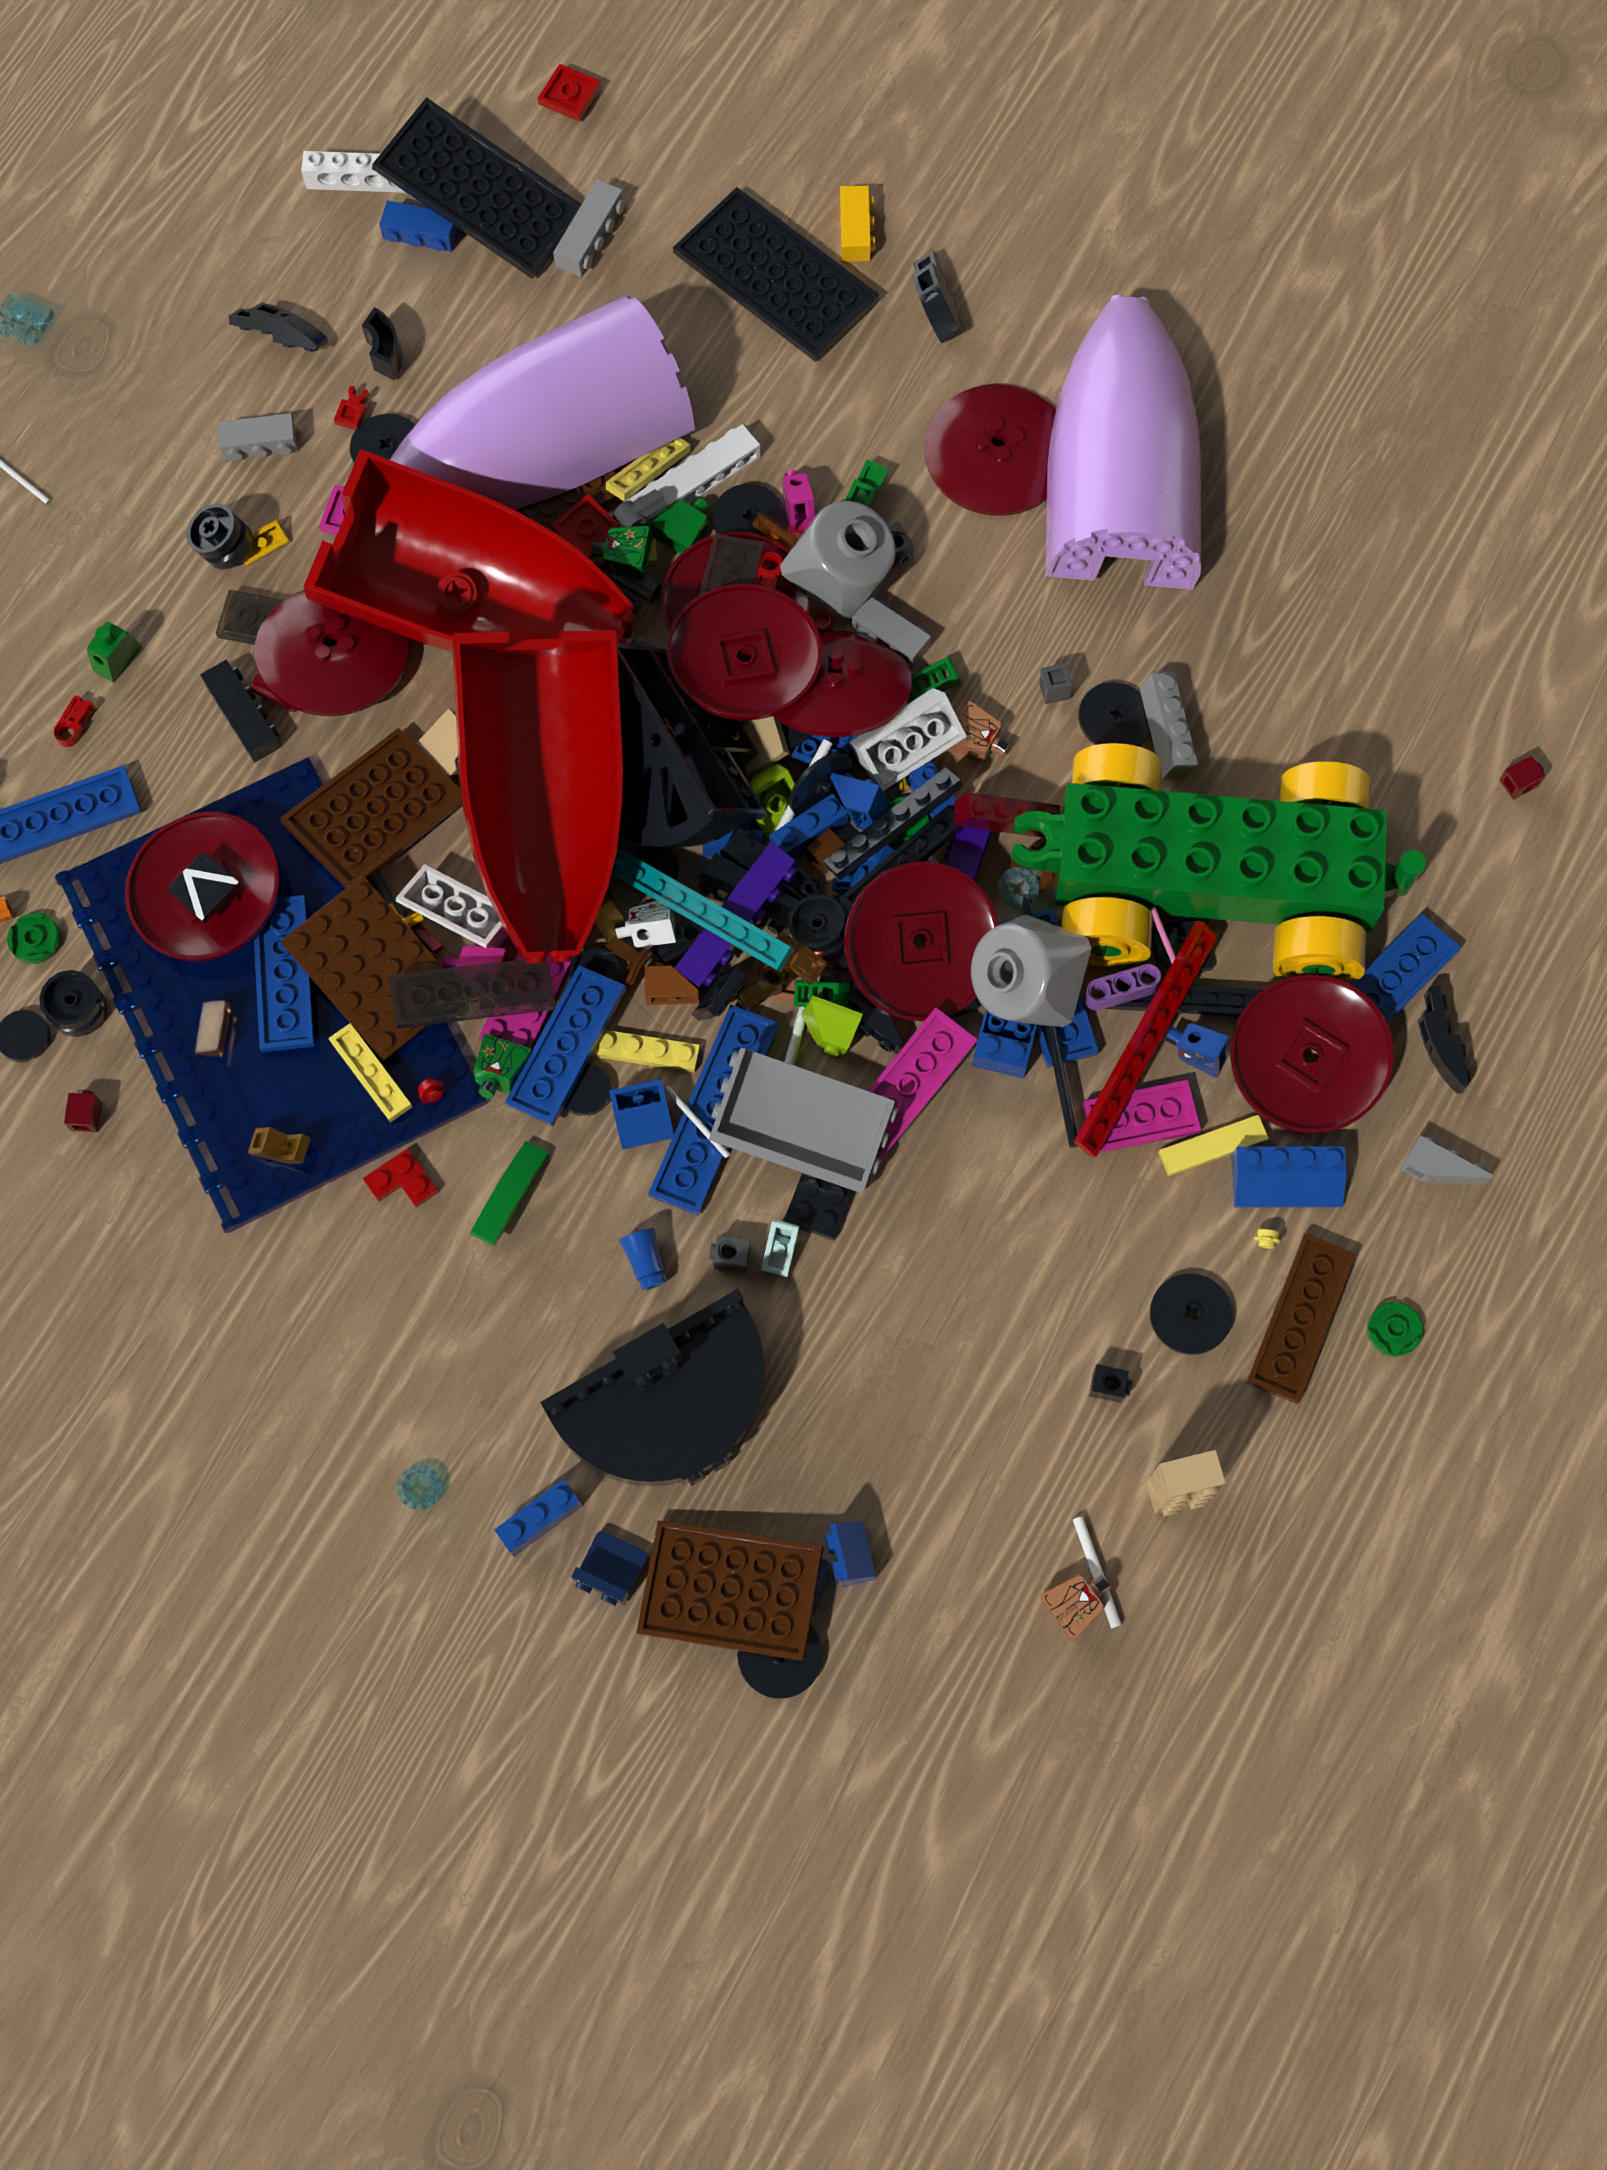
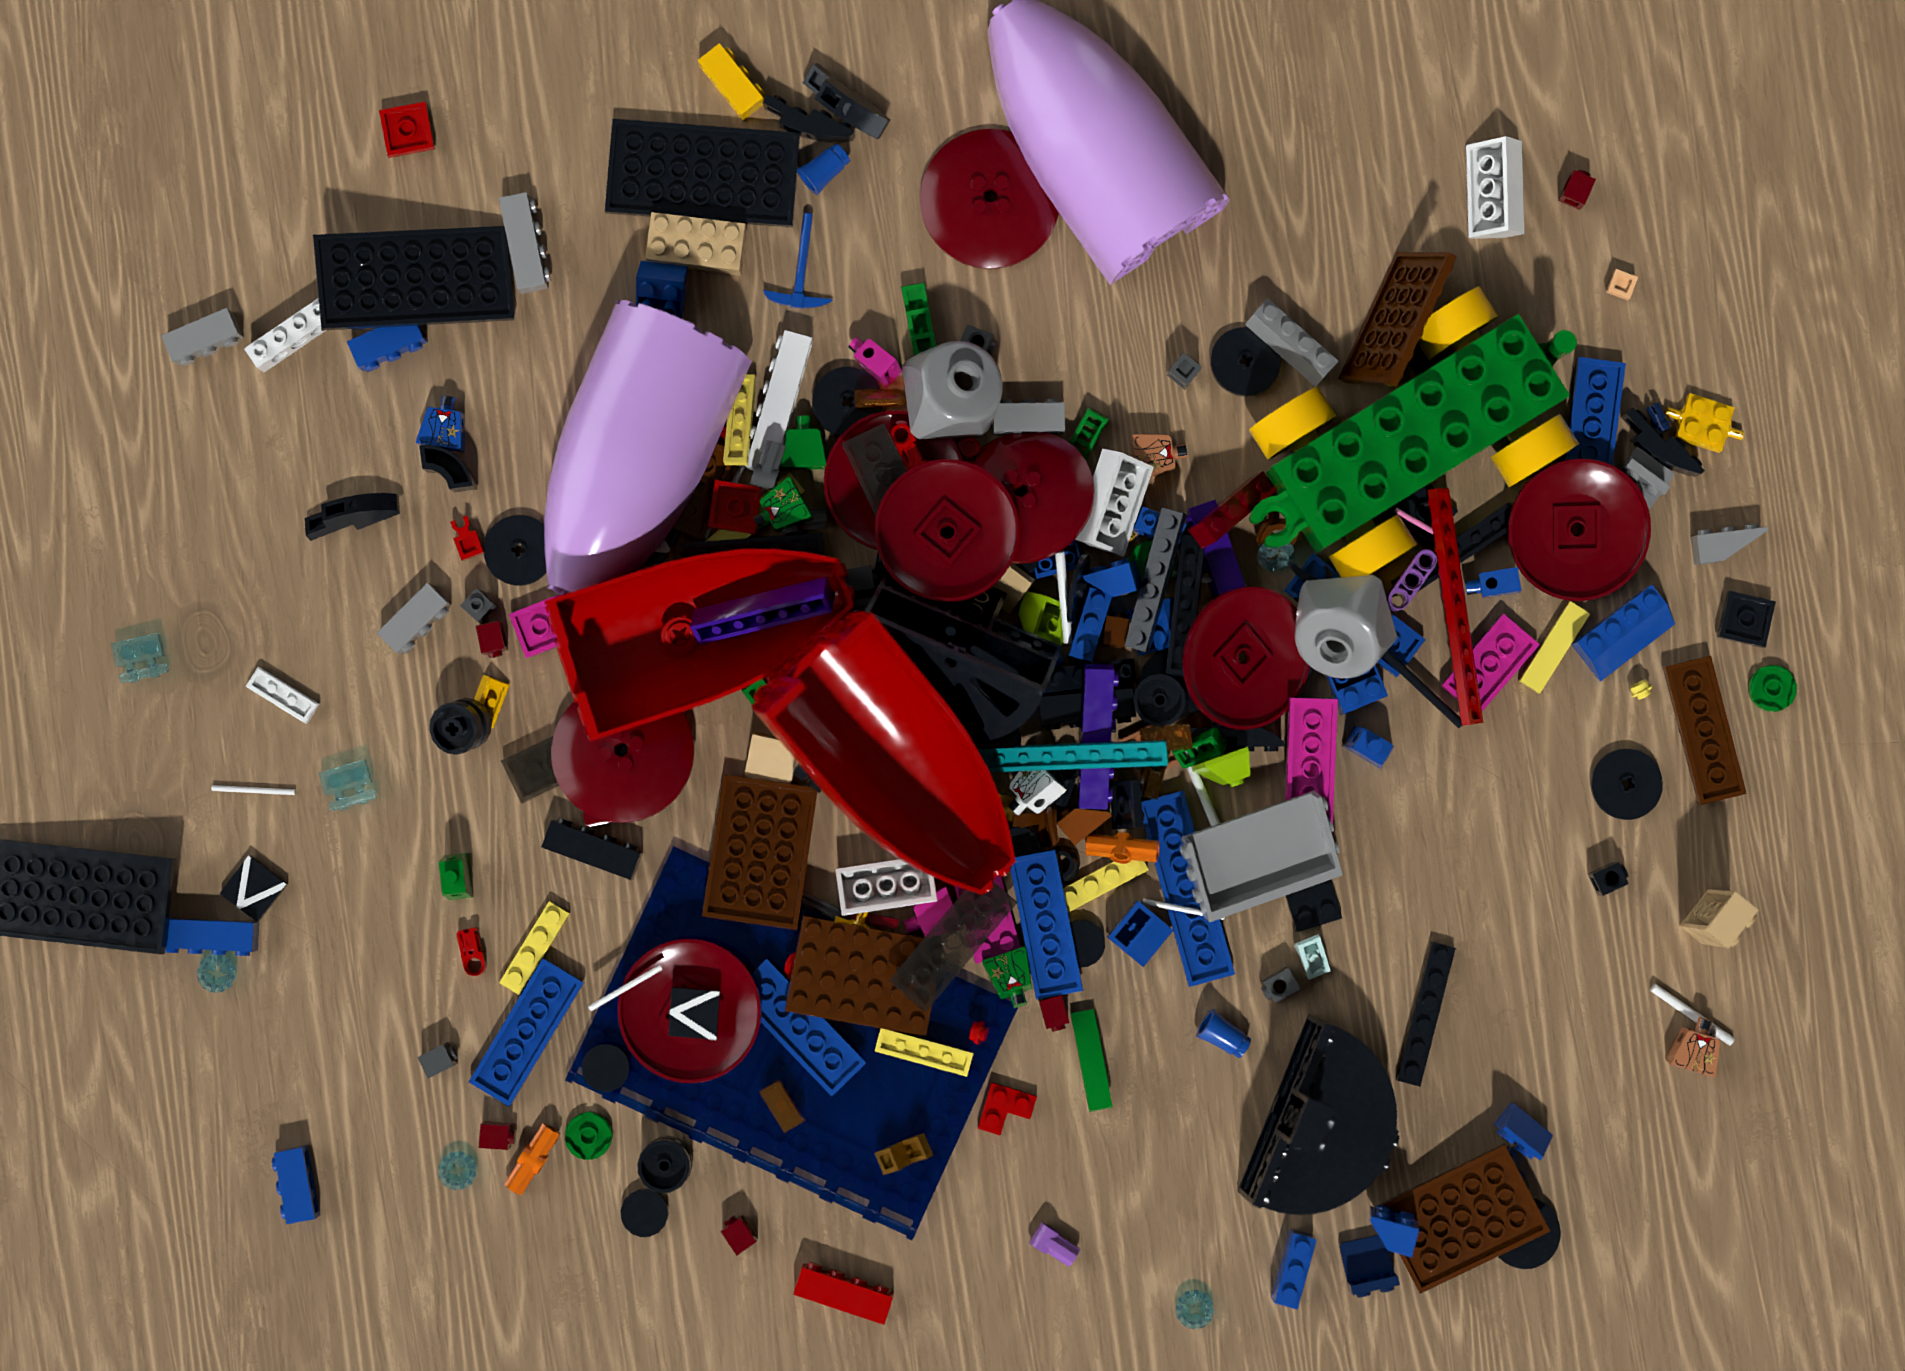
camera: 40 degrees left, 15 degrees up
(95, 887) = (606, 1067): none -> black tile
(96, 517) = (347, 777): none -> clear light blue plate
(105, 424) = (282, 695): none -> white tile
(126, 1230) = (843, 1293): none -> red brick
(130, 754) = (534, 948): none -> light yellow plate
(166, 827) = (626, 987): none -> white axle
(281, 128) = (202, 337): none -> light grey brick
(305, 494) = (492, 639): none -> dark red brick
(316, 462) = (479, 606): none -> dark grey brick
(341, 1324) = (1049, 1241): none -> medium lavender piece
(409, 315) = (443, 427): none -> blue torso
(511, 1127) = (1054, 1012): none -> dark red brick
(532, 610) = (762, 610): none -> dark purple brick
(632, 1019) = (1074, 862): none -> black piece
(655, 1546) = (1395, 1230): none -> blue slope
(677, 327) = (662, 287): none -> blue slope
(686, 1030) = (1122, 848): none -> orange piece
(725, 318) = (696, 243): none -> tan brick
(774, 416) = (797, 298): none -> blue piece
(844, 1382) = (1425, 1014): none -> black plate
(877, 332) = (823, 168): none -> blue plant
(894, 296) = (815, 127): none -> black slope
(975, 1105) = (1368, 746): none -> blue torso
(1279, 758) = (1397, 318): none -> reddish brown plate
(1411, 1058) = (1648, 475): none -> light grey bracket
(1414, 1247) = (1746, 619): none -> black plate
(1448, 728) = (1495, 188): none -> white slope
(1459, 1017) = (1659, 419): none -> dark blue pin
(1499, 1051) = (1704, 423): none -> yellow plate
(1506, 882) = (1622, 284): none -> light nougat plate

